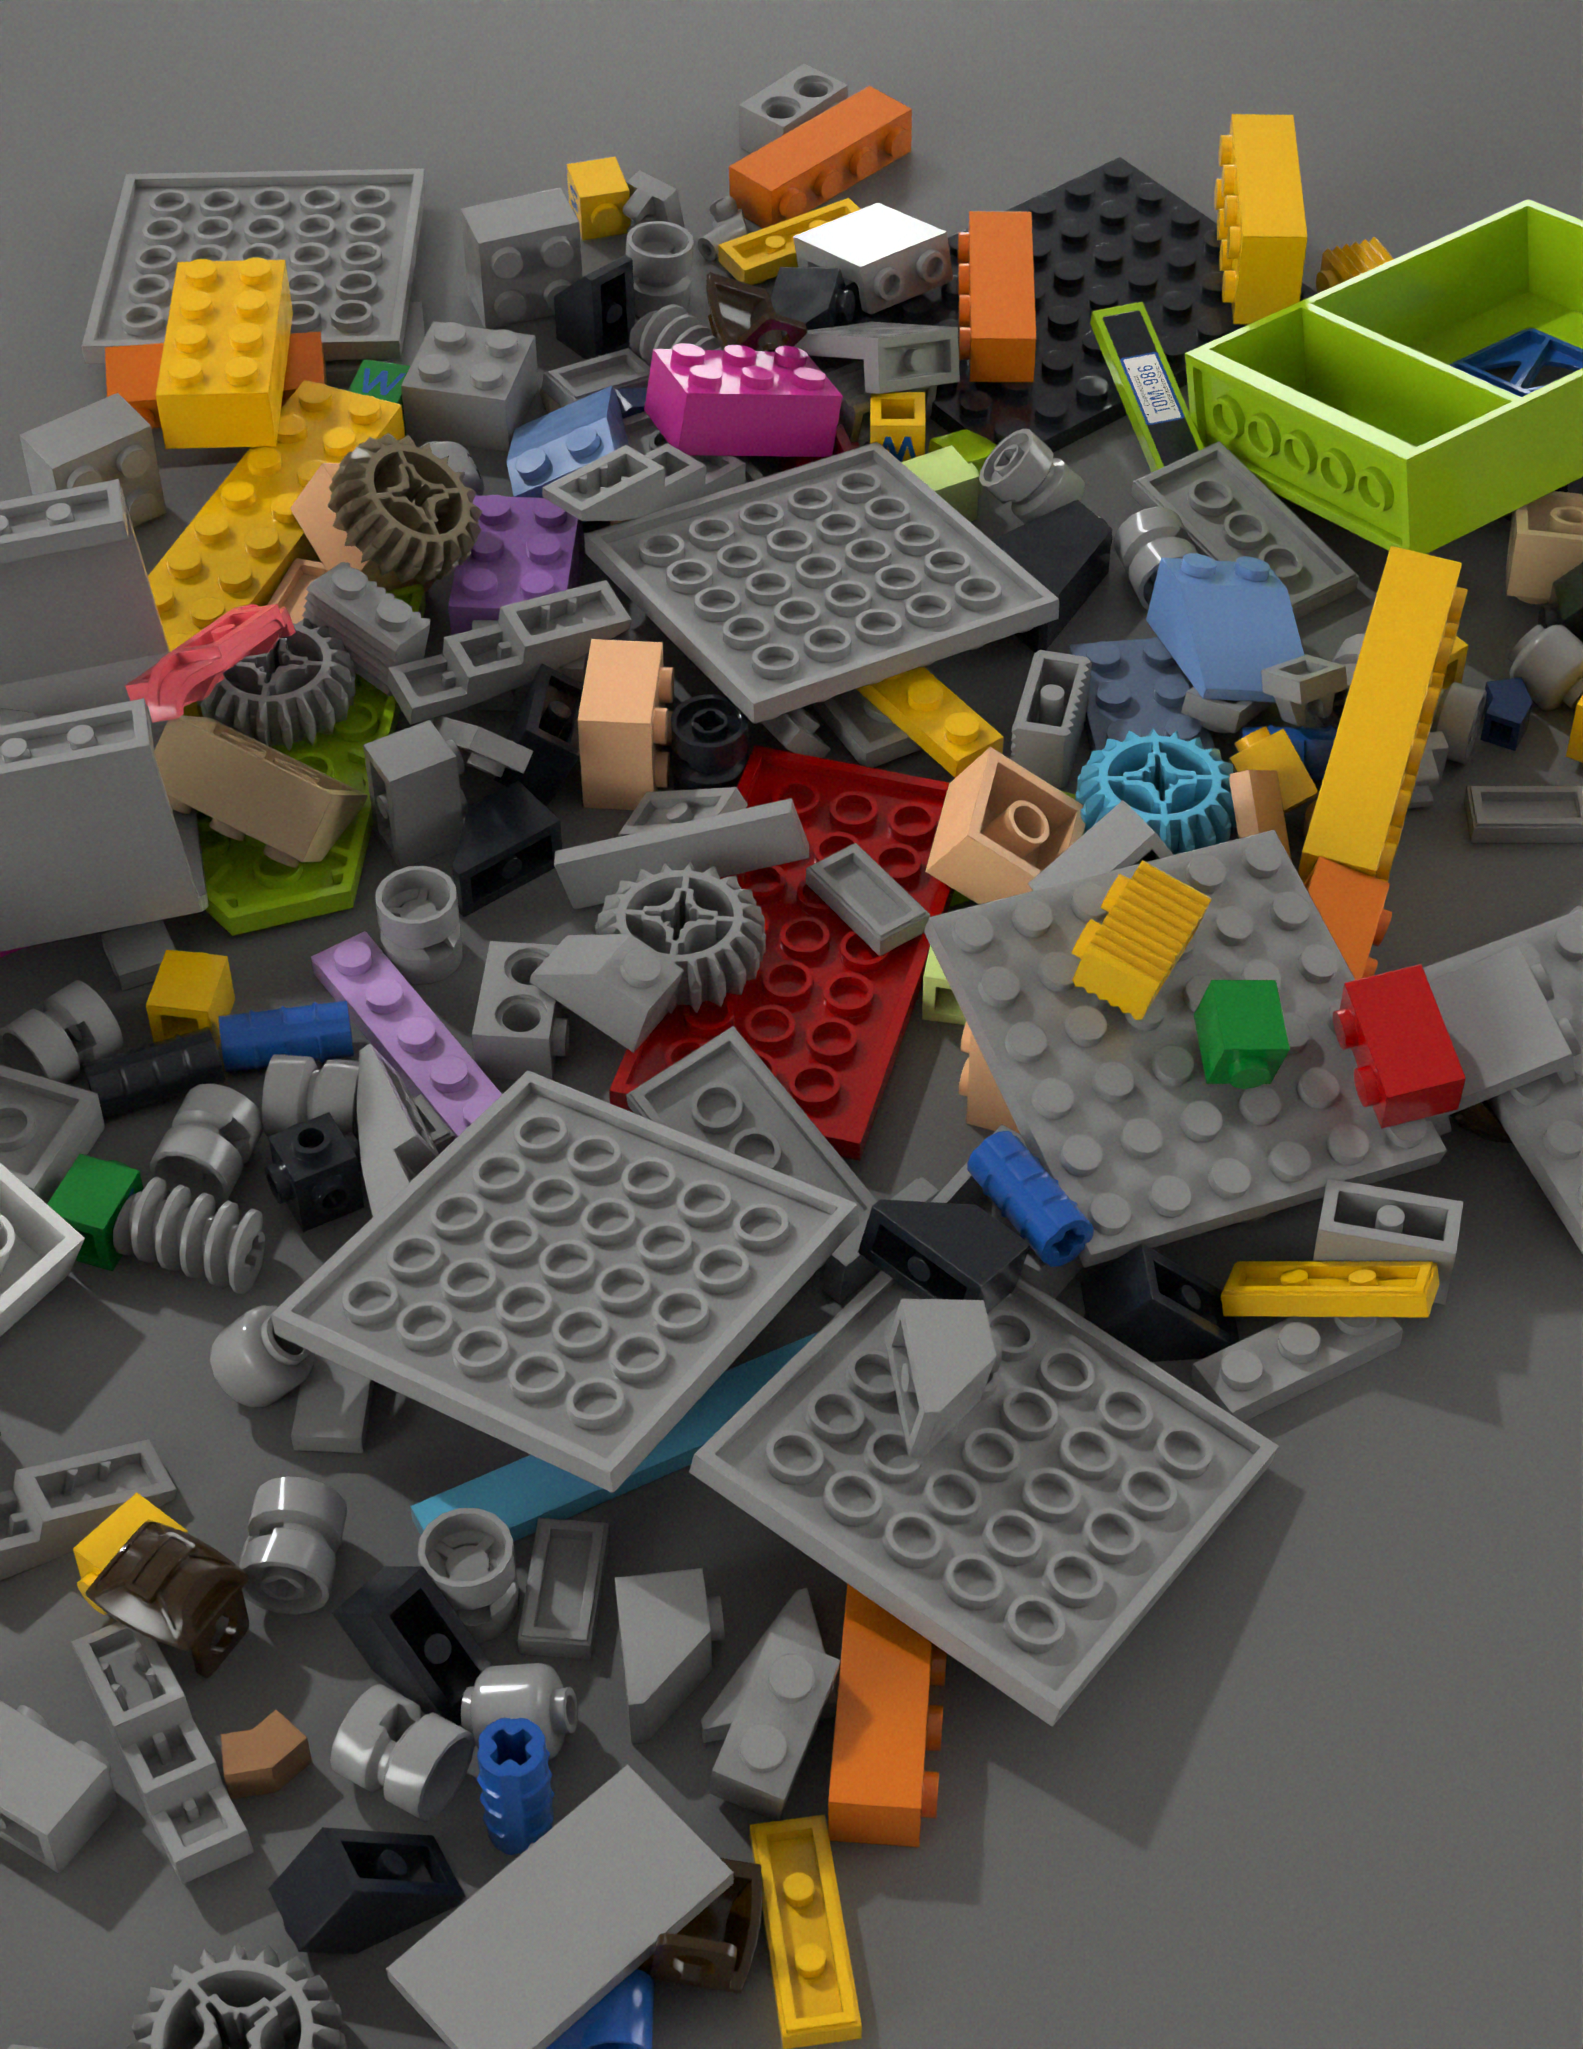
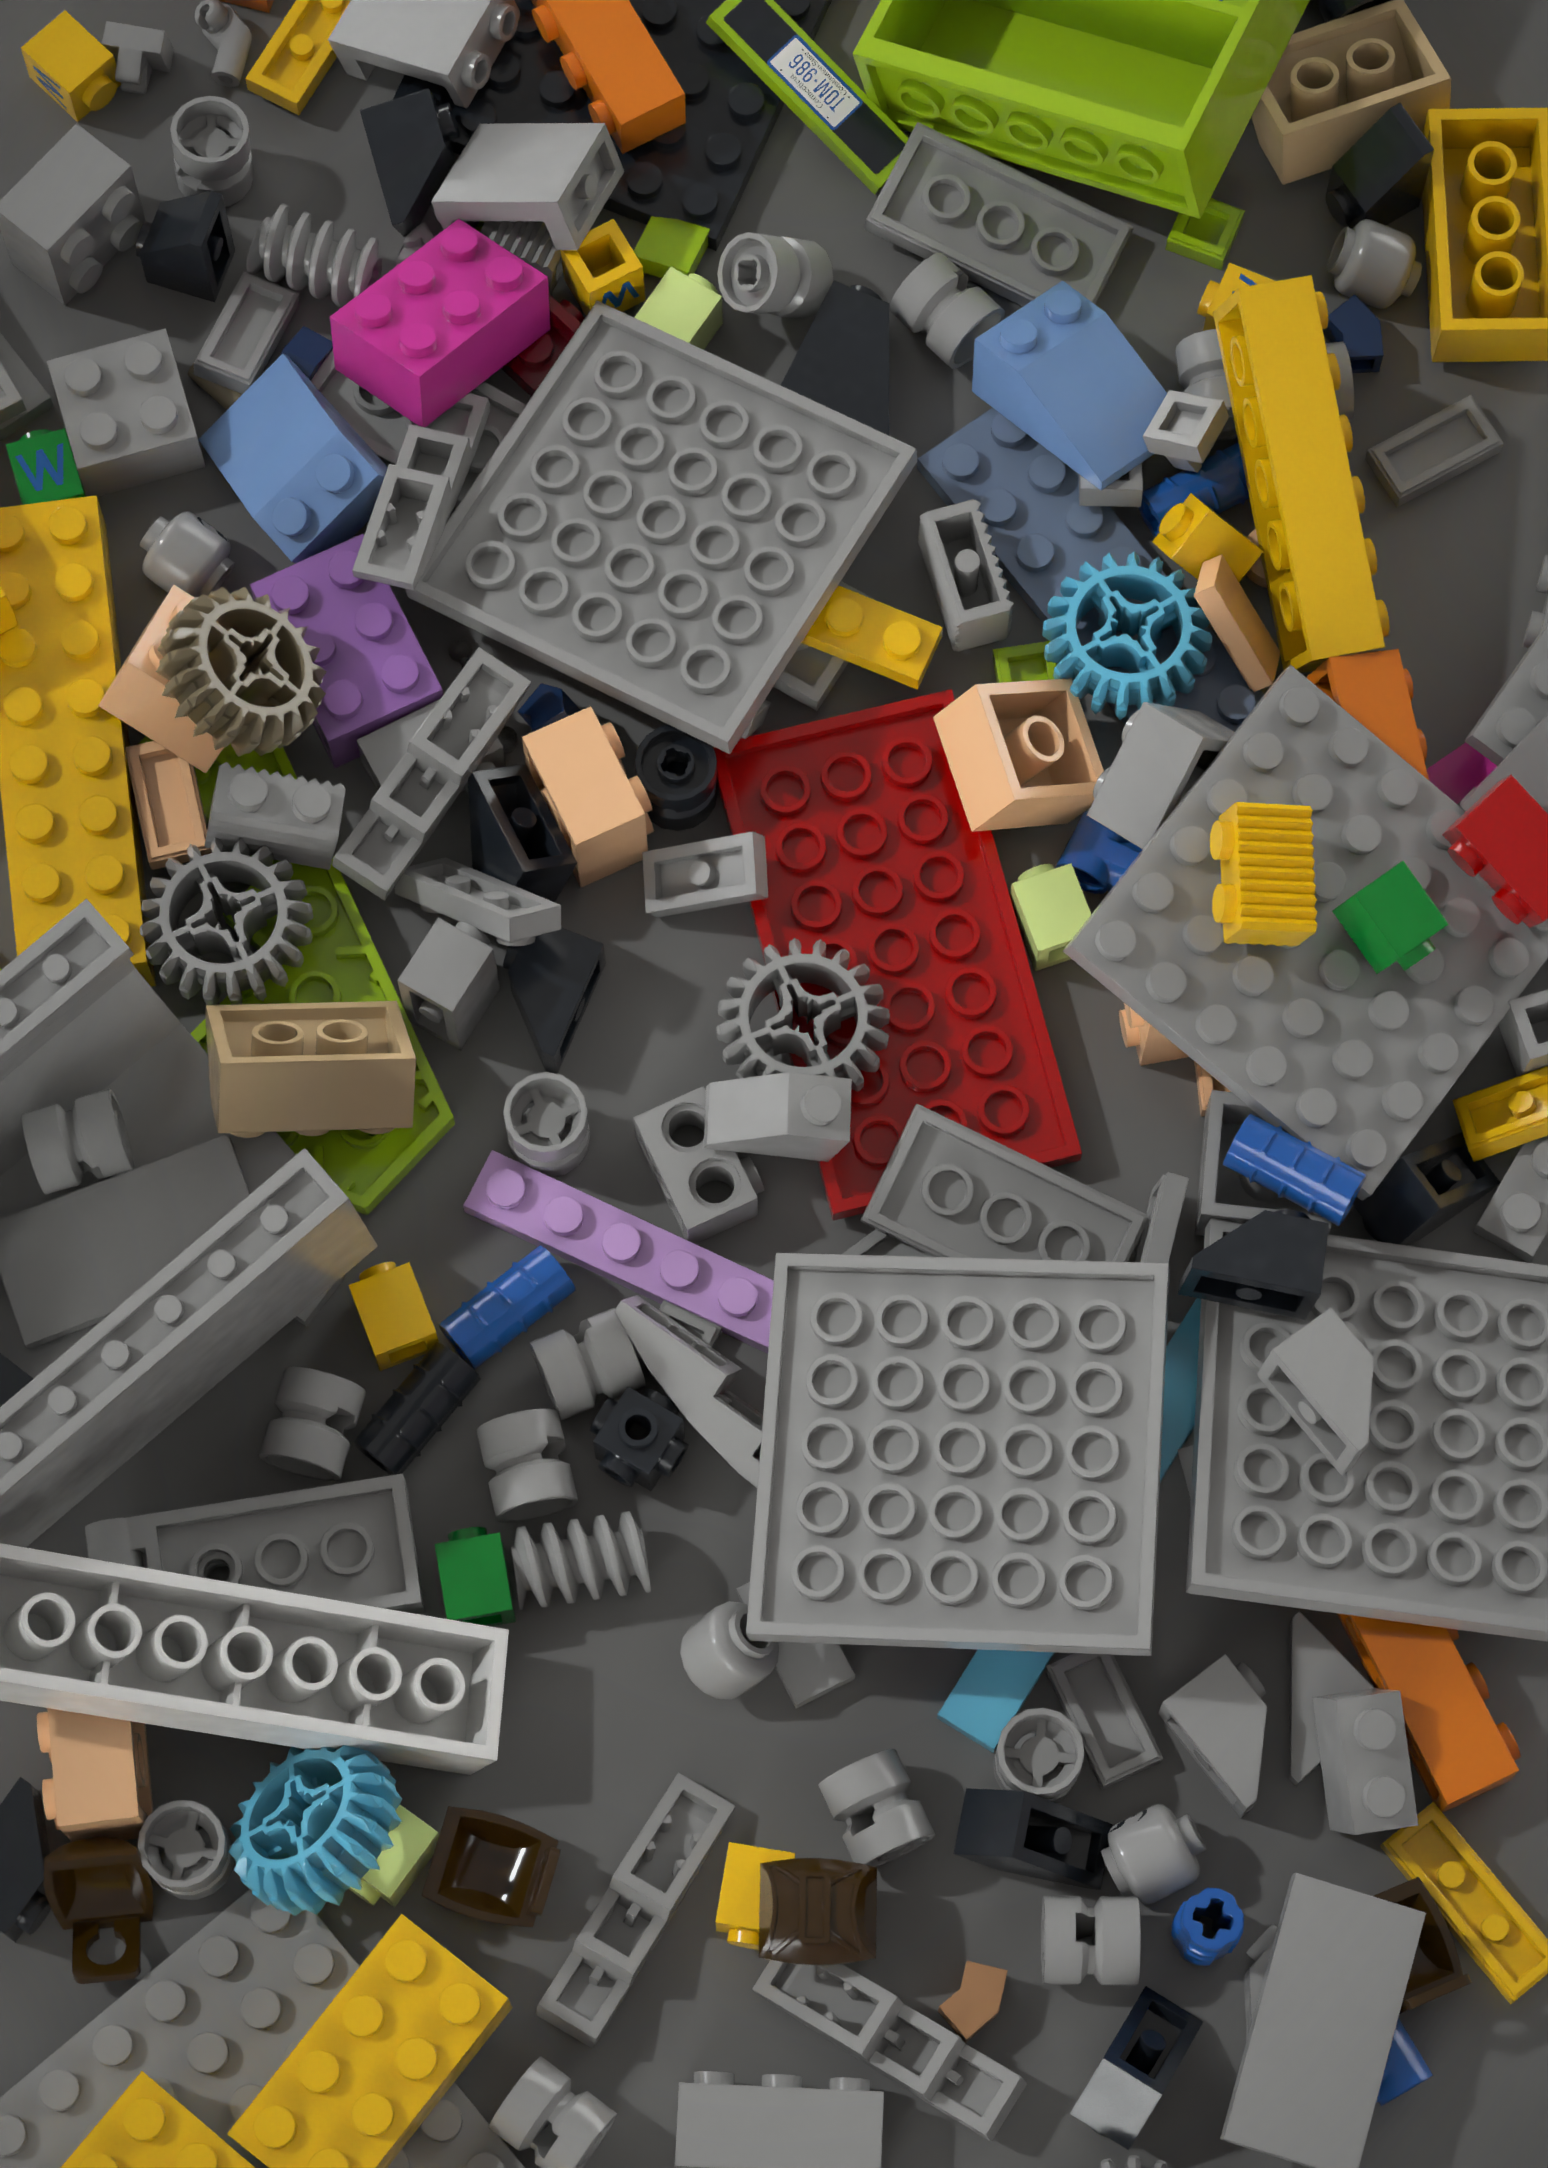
camera: 30 degrees left, 25 degrees up
(199, 663) = (198, 975): coral plate -> none
(729, 841) = (740, 925): light grey tile -> none
(746, 316) = (382, 213): dark brown piece -> none
(867, 899) = (929, 881): light grey tile -> none

